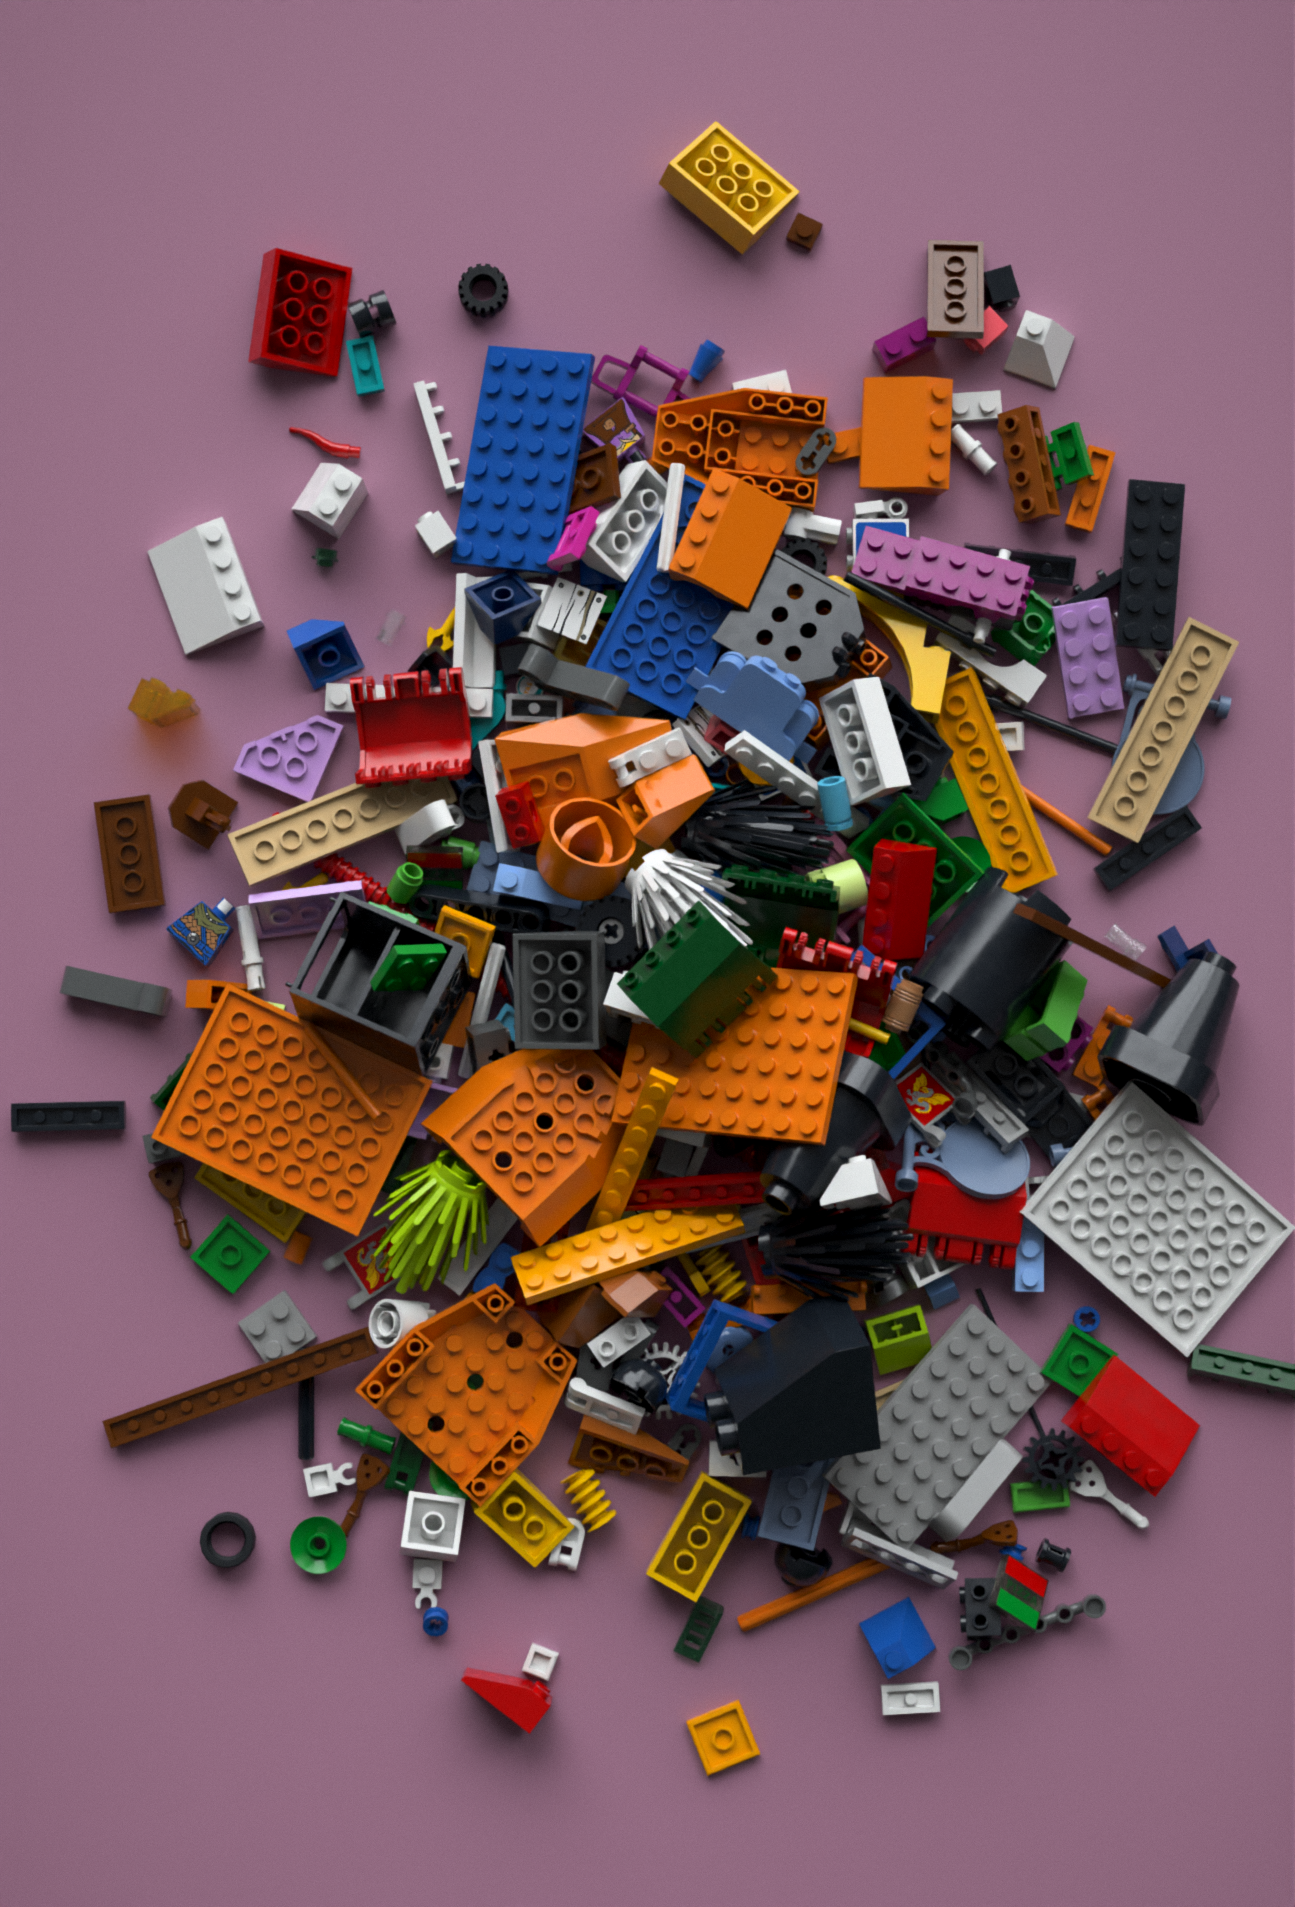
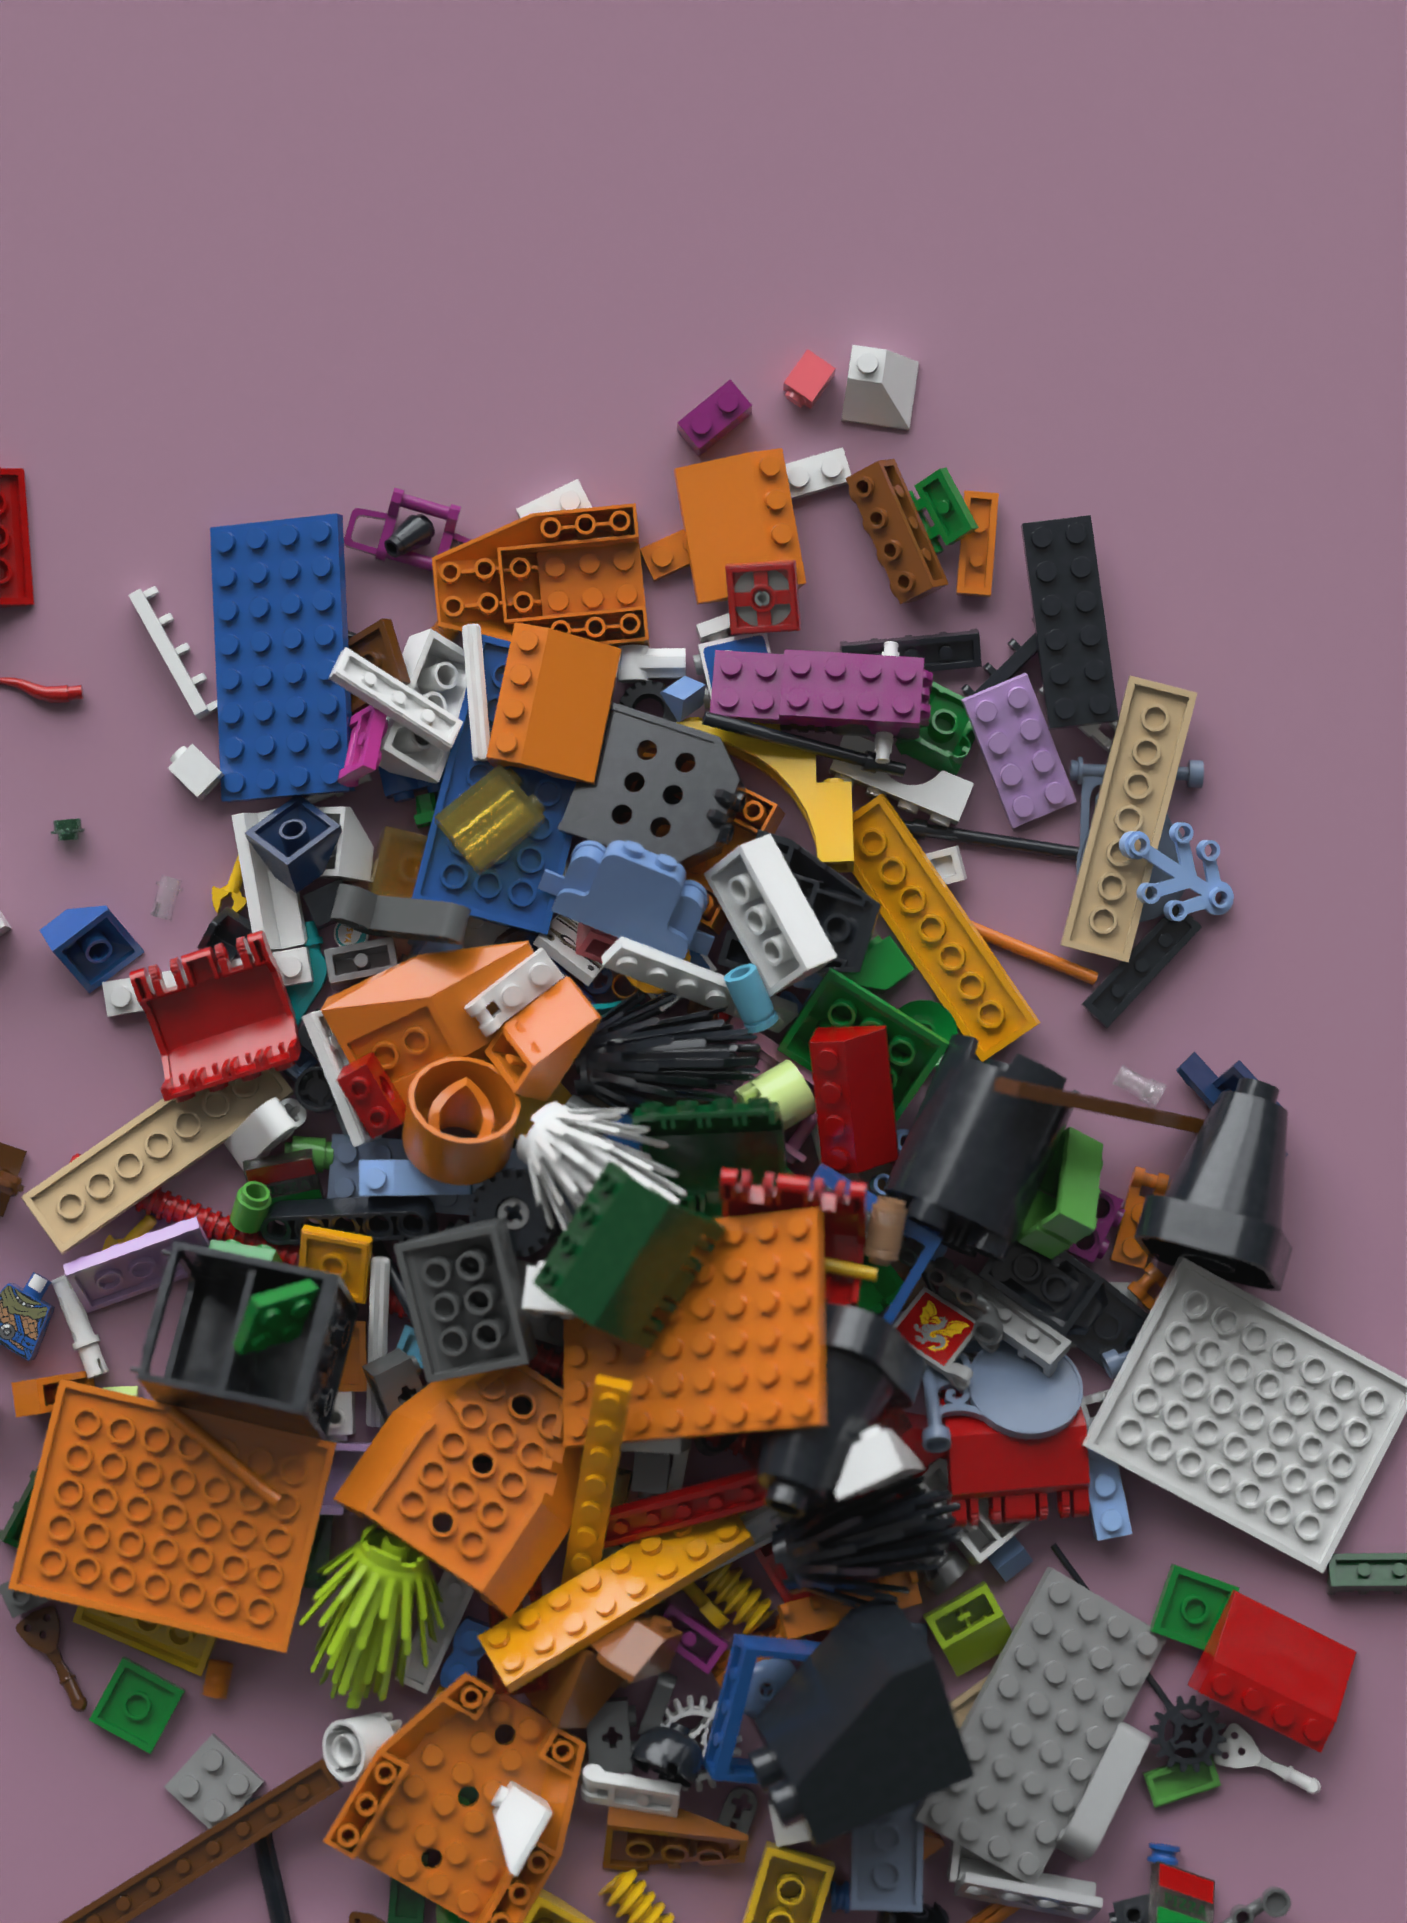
camera: 15 degrees left, 0 degrees up
(292, 757) = (81, 1082): lavender plate -> none
(331, 498) = (58, 756): white slope -> none
(362, 317) = (49, 527): black wheel -> none
(363, 1266) = (303, 1686): flag -> none
(365, 366) = (65, 585): teal plate -> none
(366, 1436) = (350, 1890): green pin -> none
(477, 274) = (173, 446): black tyre -> none
(511, 1409) = (519, 1822): none -> white slope
(572, 610) = (381, 831): white sticker -> none
(606, 508) = (396, 700): none -> white tile
(618, 1339) = (629, 1708): white brick -> none
(620, 428) = (390, 596): torso -> none
(645, 385) = (410, 535): none -> black cone
(660, 618) = (490, 818): none -> clear yellow brick
(706, 359) = (478, 488): blue cone -> none
(728, 187) = (459, 271): yellow slope -> none
(804, 231) = (563, 305): reddish brown plate -> none
(810, 448) = (627, 569): dark grey beam -> none
(833, 558) = (684, 697): none -> medium blue slope
(912, 492) = (763, 597): none -> red piece
(955, 289) = (761, 337): plate -> none
(972, 450) = (825, 527): white pin -> none
(999, 1534) = (1142, 1839): reddish brown piece -> none
(1001, 288) = (817, 324): black brick -> none
(1053, 1555) = (1213, 1849): black bush -> none
(1087, 1327) = (1195, 1563): blue bush -> none
(1195, 781) = (1182, 874): none -> light blue plant

